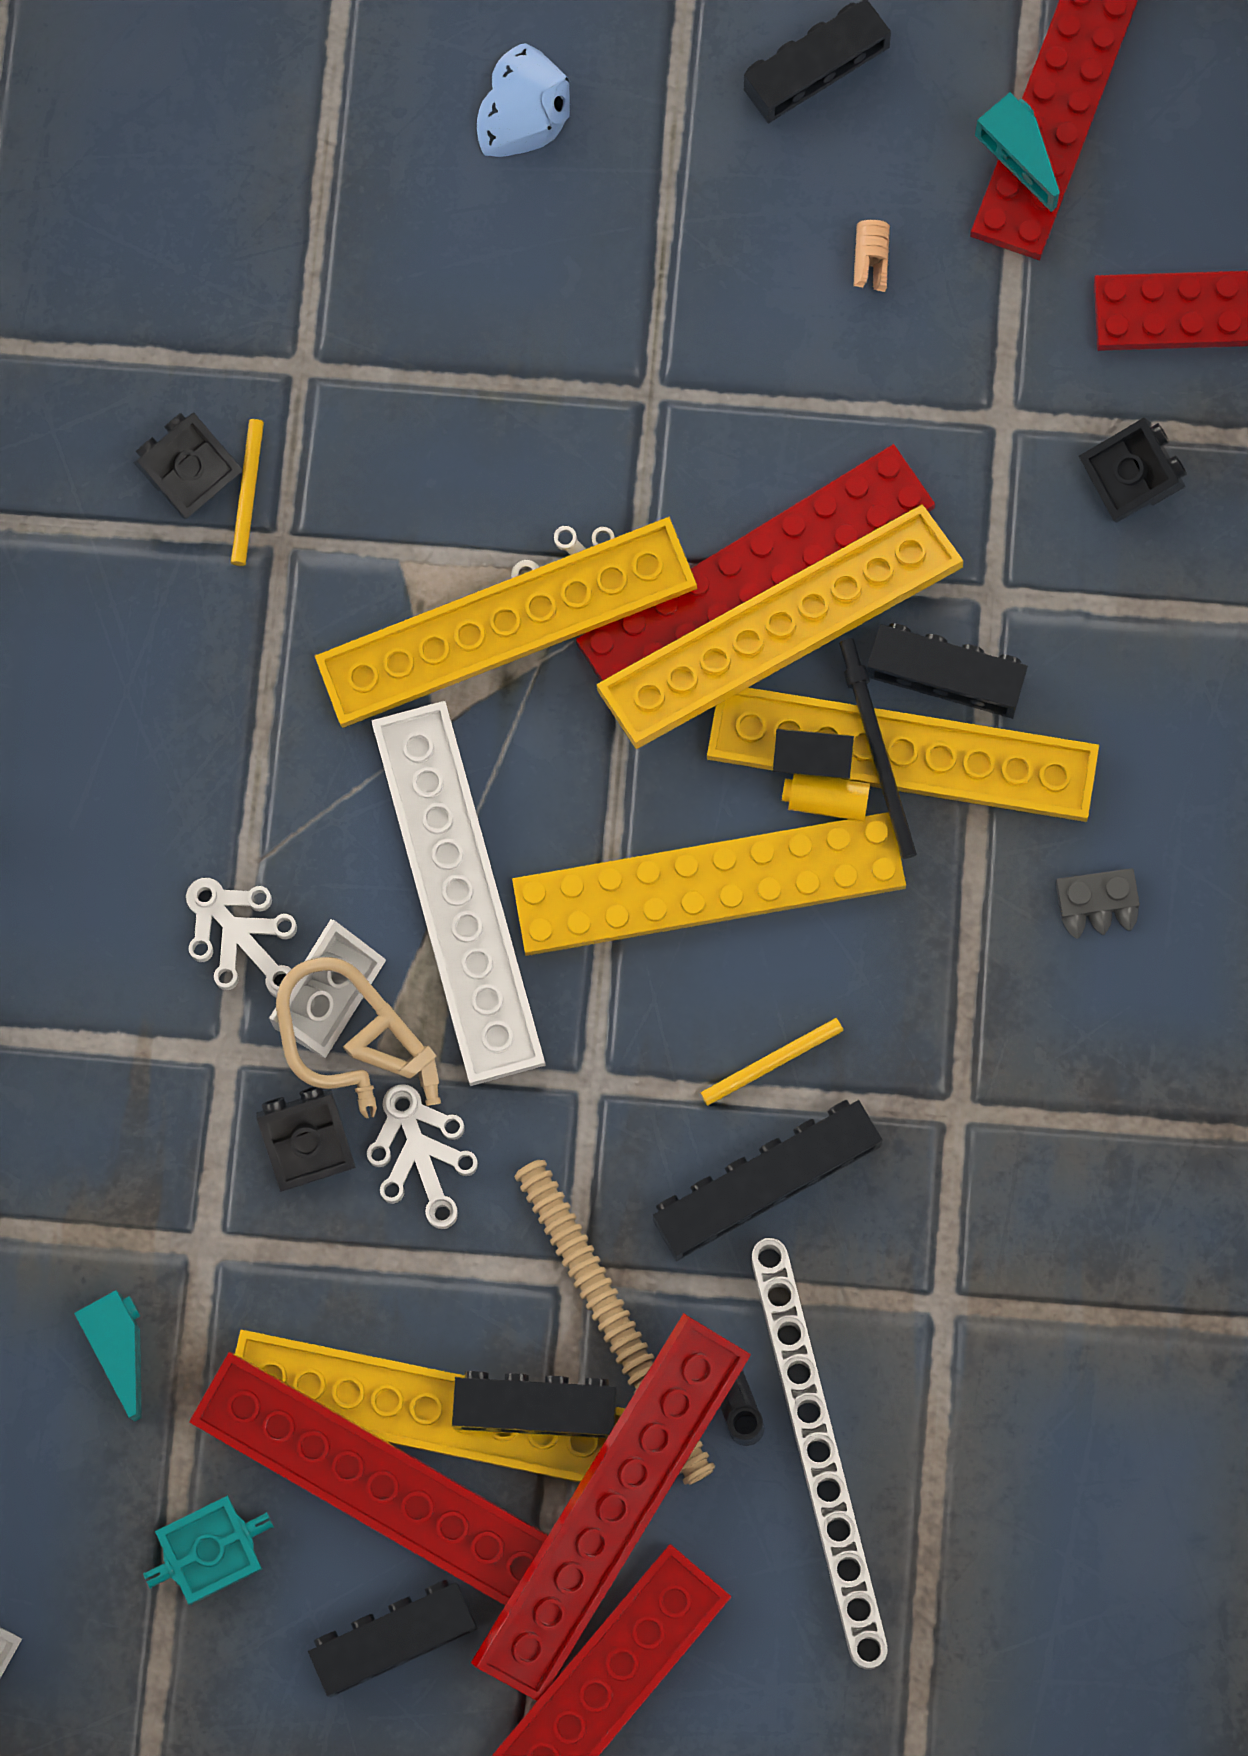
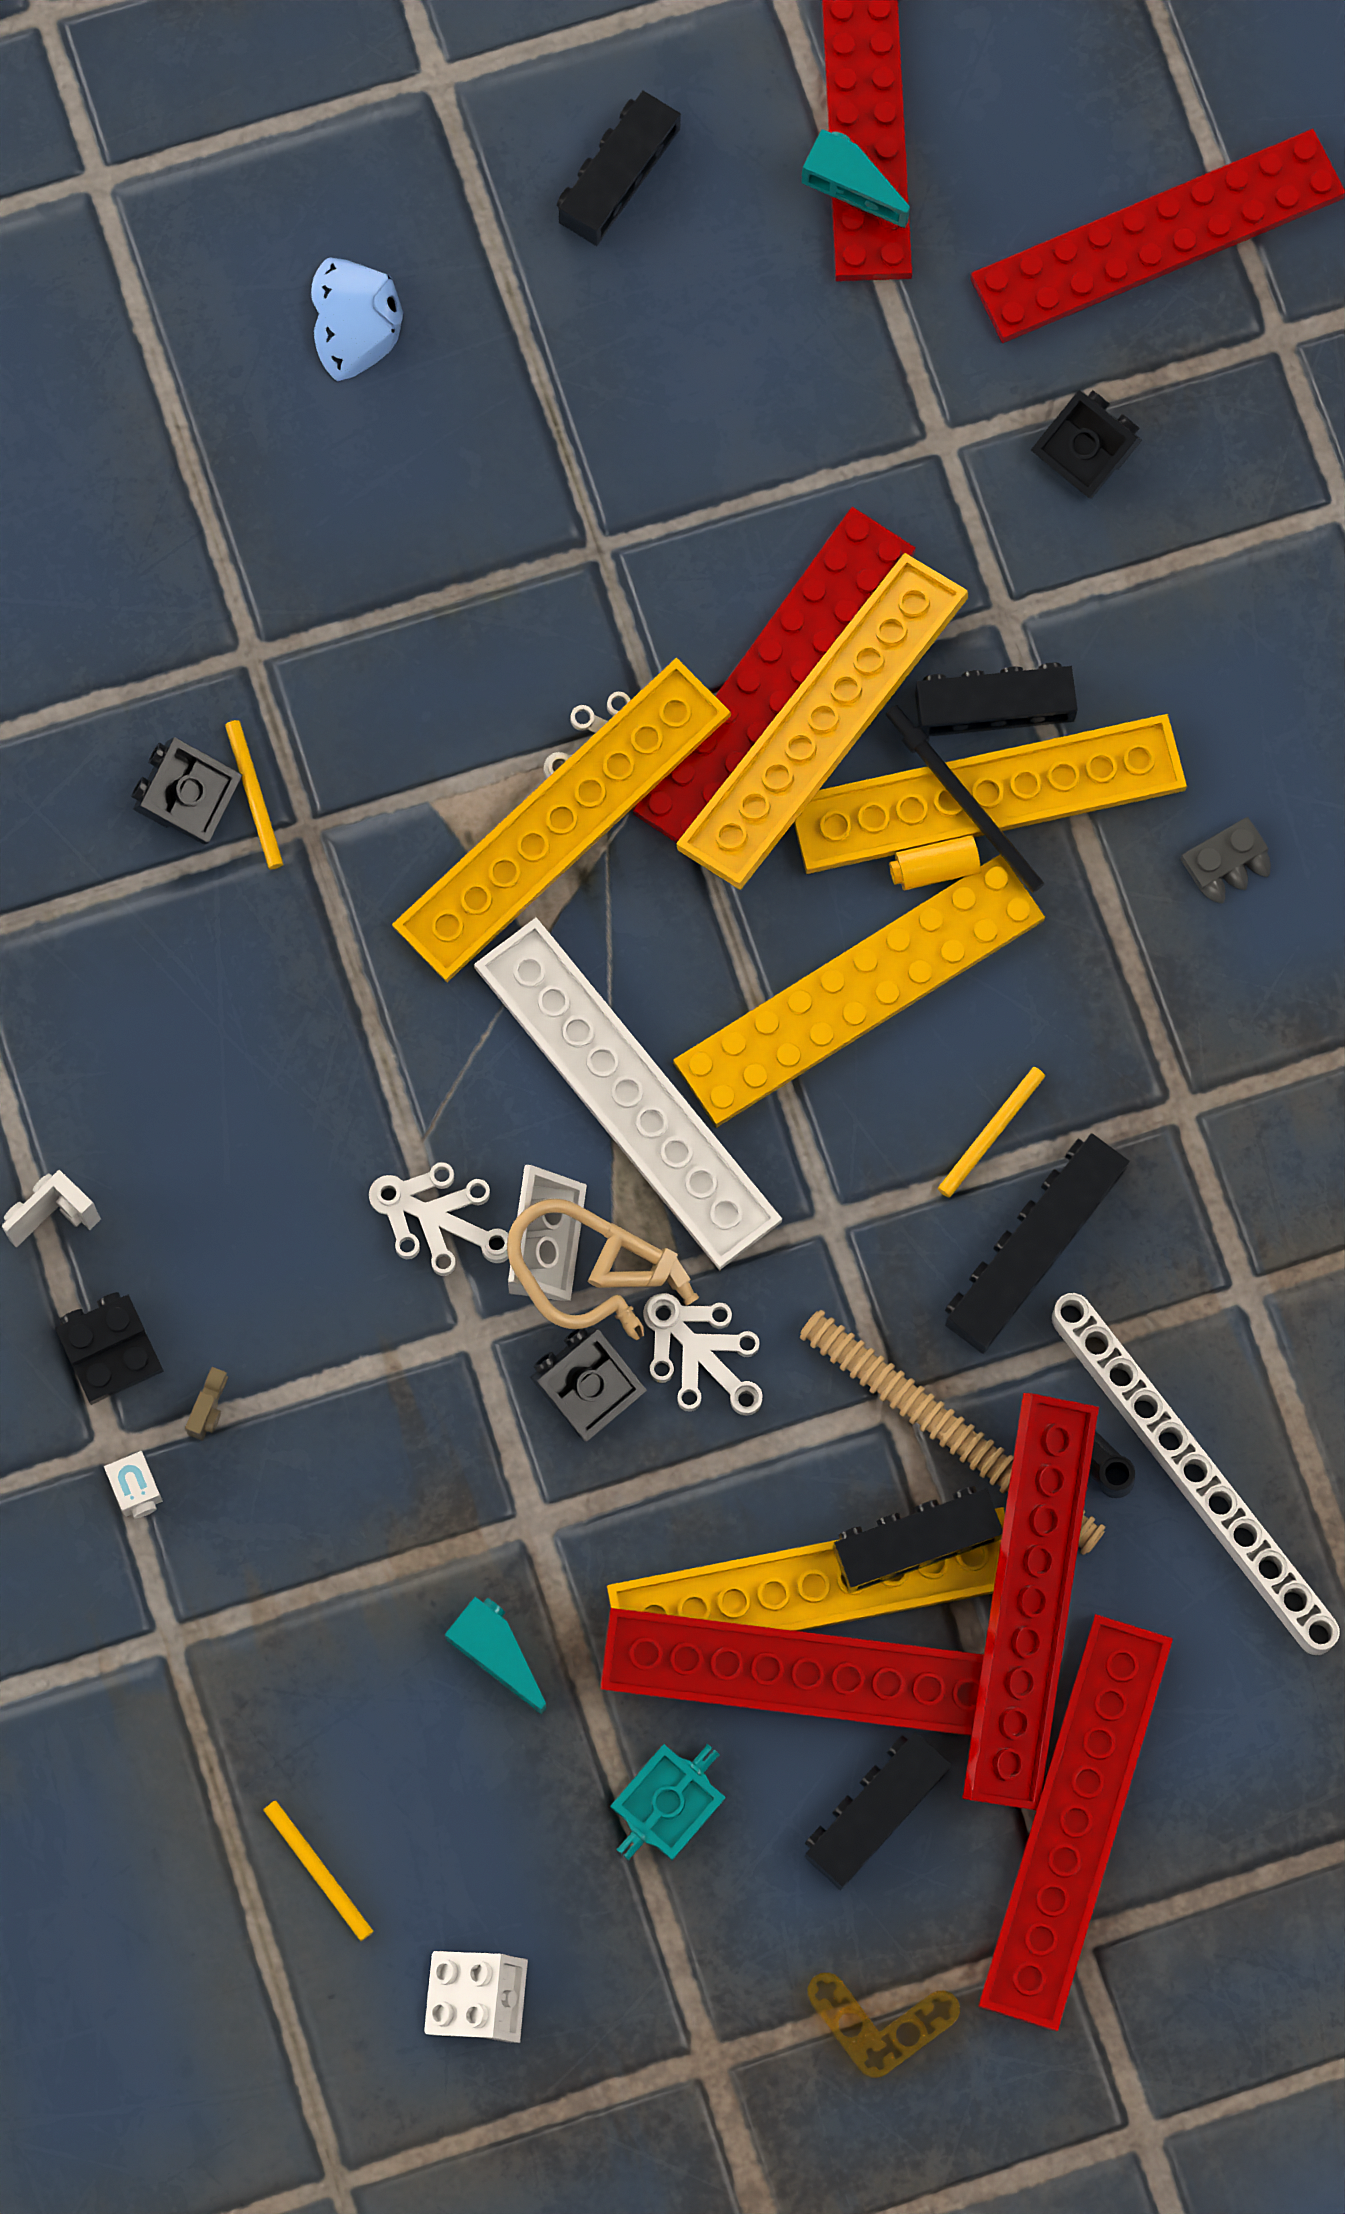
camera: 30 degrees left, 0 degrees up
(813, 753) = (908, 827): black hinge -> none
(872, 251) = (752, 330): light nougat hinge -> none

